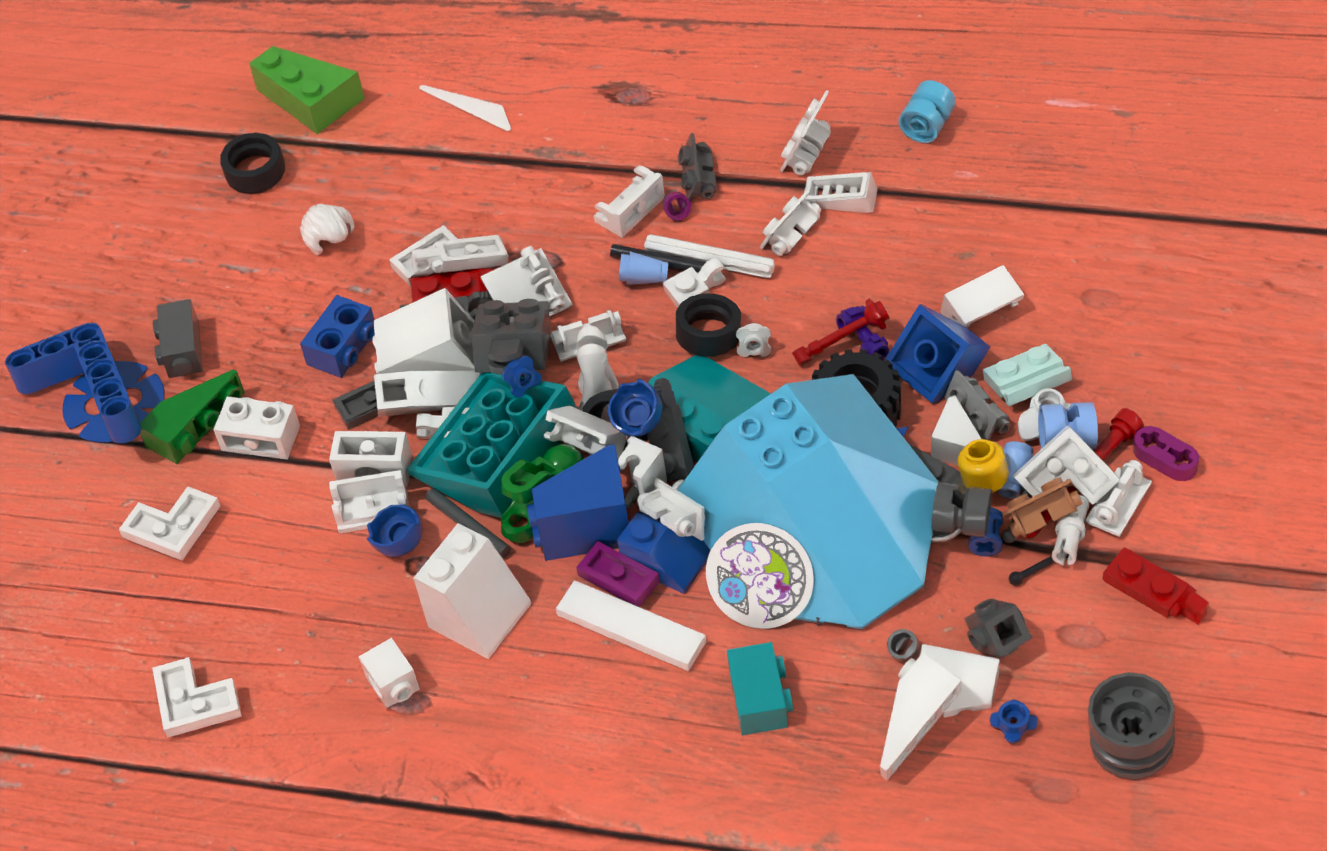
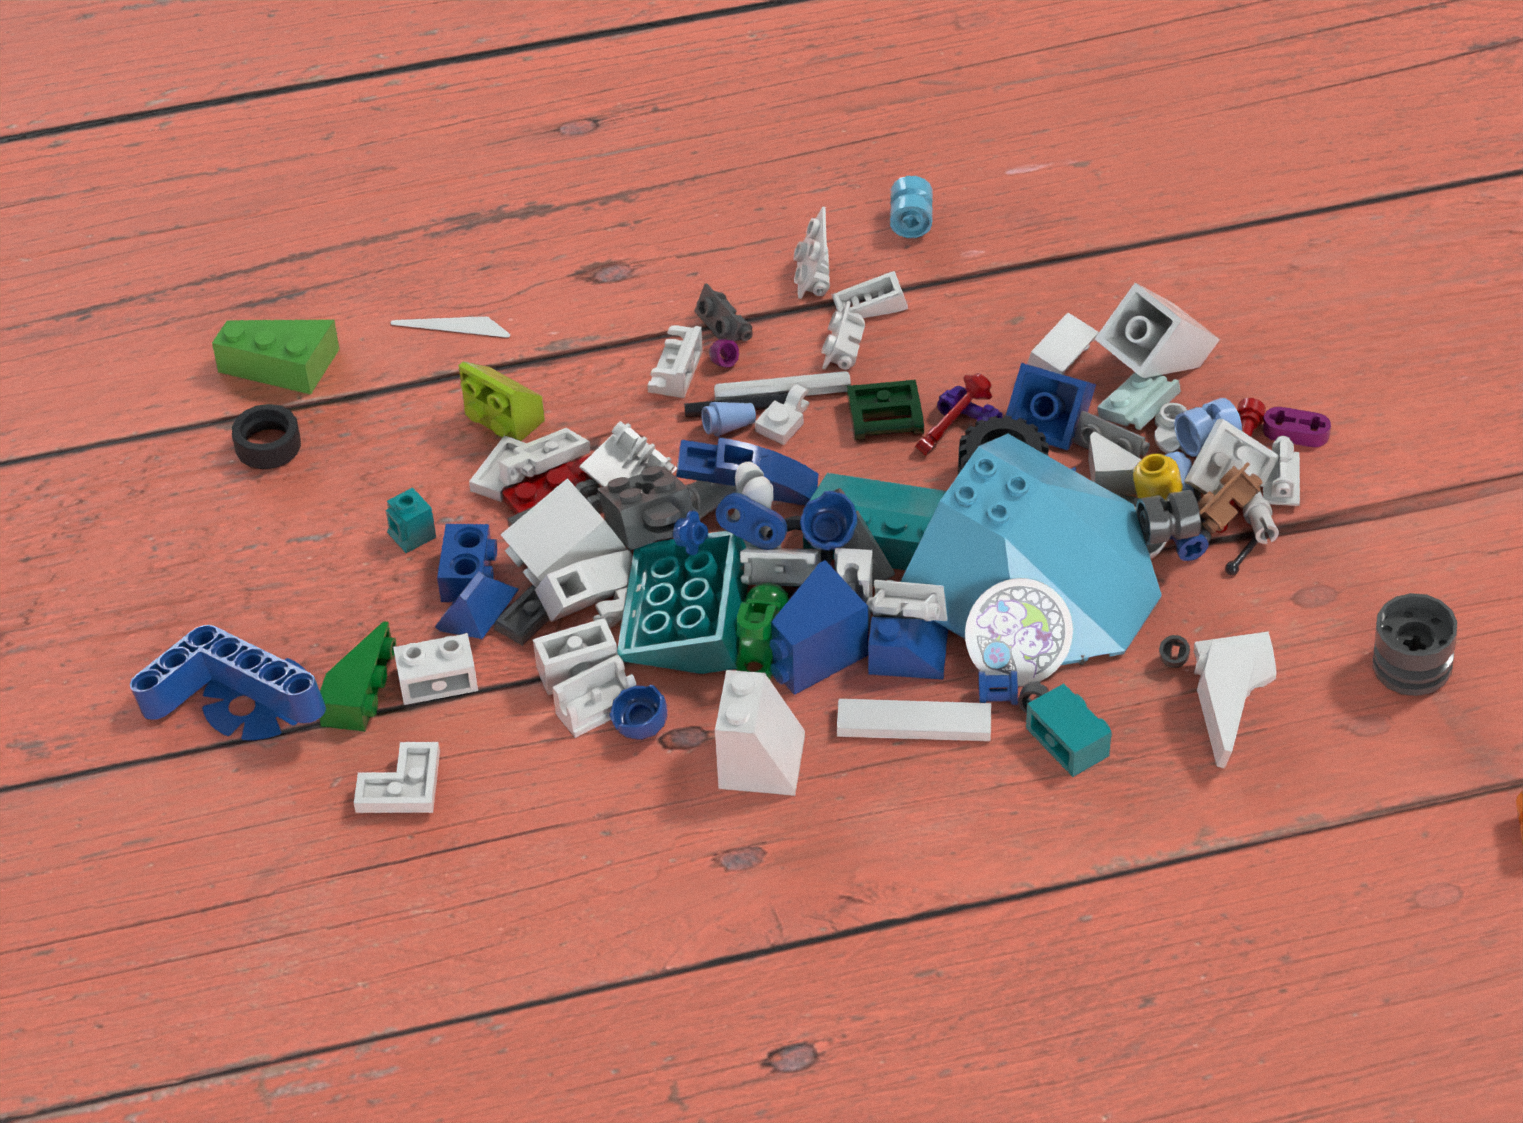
camera: 30 degrees left, 5 degrees down
(178, 338) = (297, 615): dark grey brick -> none
(191, 707) = (529, 935): white plate -> none
(316, 280) = (410, 520): none -> teal window
(322, 381) = (477, 607): none -> blue slope
(325, 223) = (383, 467): white hair -> none
(389, 673) = (715, 835): white brick -> none
(453, 190) = (499, 402): none -> lime slope
(459, 516) = (683, 682): dark grey bar -> none
(574, 381) = (752, 518): none -> blue plate
(618, 574) = (876, 679): magenta plate -> none
(625, 332) = (718, 464): none -> blue slope
(707, 307) = (821, 429): black tyre -> none
(720, 622) = (1009, 682): none -> blue bush
(747, 638) = (1031, 688): none -> dark grey hinge
(756, 333) = (869, 440): white plate -> none
(790, 299) = (885, 400): none -> dark green plate
(997, 628) = (1250, 607): dark grey brick -> none
(1013, 710) = (1305, 679): blue plate -> none
(1073, 315) = (1155, 335): none -> white slope
(1154, 587) = (1355, 535): red hinge -> none

